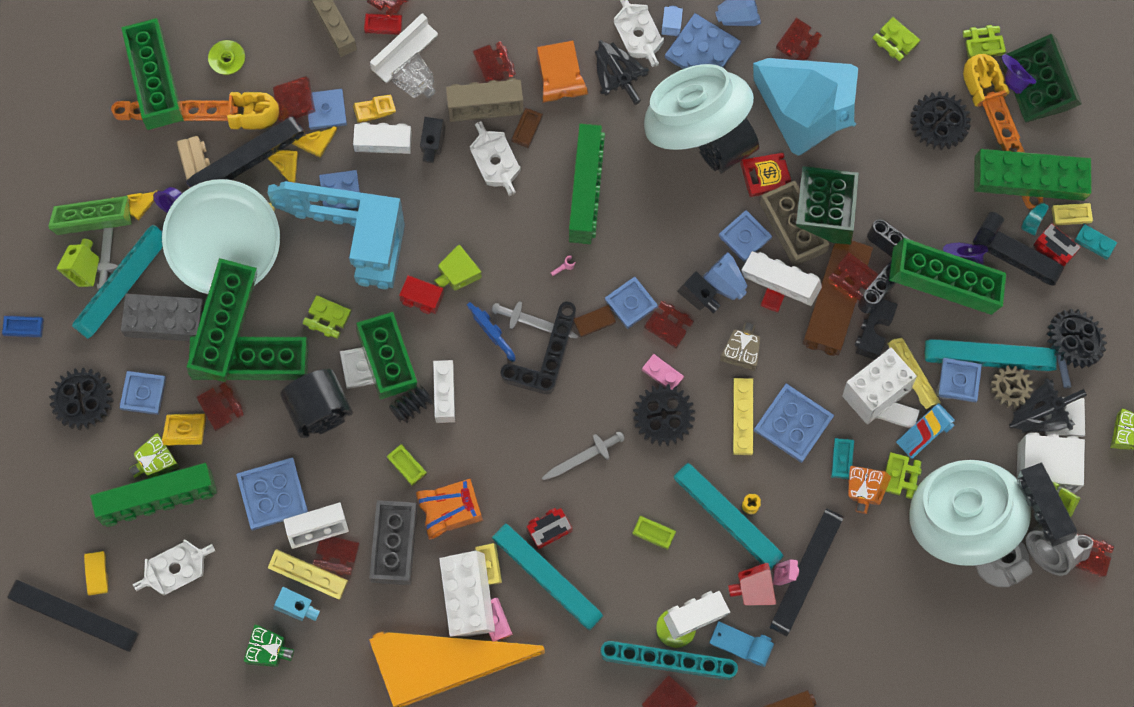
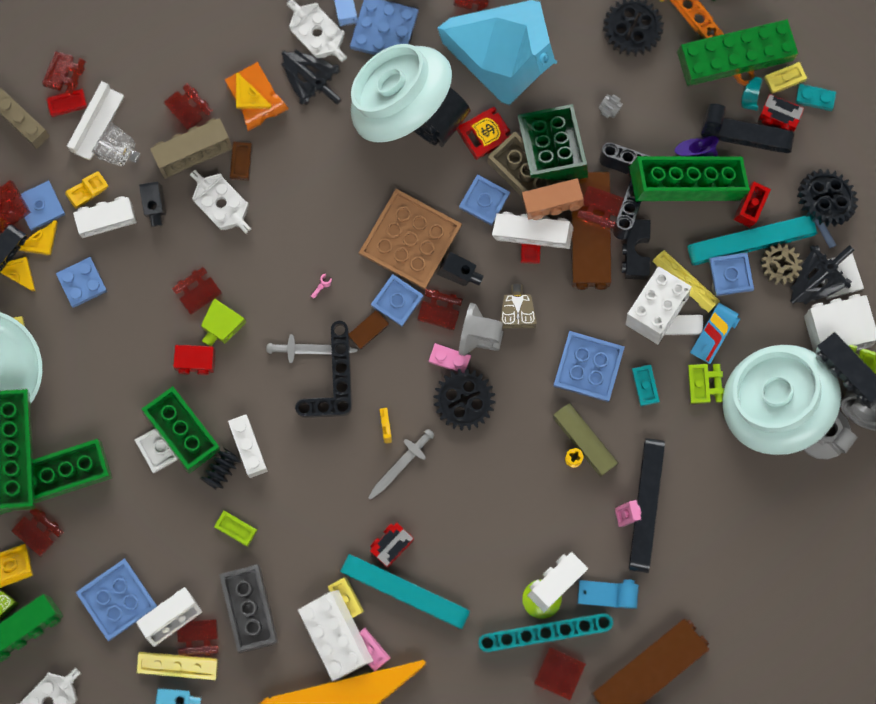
camera: 15 degrees left, 5 degrees up
(316, 403) = (129, 499): black brick -> none
(329, 312) = (110, 404): lime plate -> none
(377, 225) = (130, 310): medium azure bracket -> none
(447, 238) = (200, 295): none -> clear red plate
(449, 507) = (290, 557): orange piece -> none
(493, 332) = (274, 372): blue plate -> none
(553, 69) = (248, 97): none -> yellow tile
(579, 423) = (385, 425): none -> yellow tile
(586, 184) = (315, 197): green brick -> none
(654, 532) = (491, 515): lime tile -> none
(662, 250) = (410, 239): none -> medium nougat plate
(699, 355) = (479, 332): none -> light grey piece
(726, 278) = (480, 247): medium blue cone -> none
(728, 516) = (556, 476): teal beam -> none
(742, 416) = (539, 375): light yellow plate -> none
(754, 586) = (603, 536): torso -> none
(767, 490) = (585, 439): none -> olive brick
(810, 253) = (553, 199): none -> nougat brick
(867, 487) = (677, 406): orange torso -> none
(894, 187) = (610, 106): none -> light grey gear
(1001, 321) = (752, 204): none -> red brick

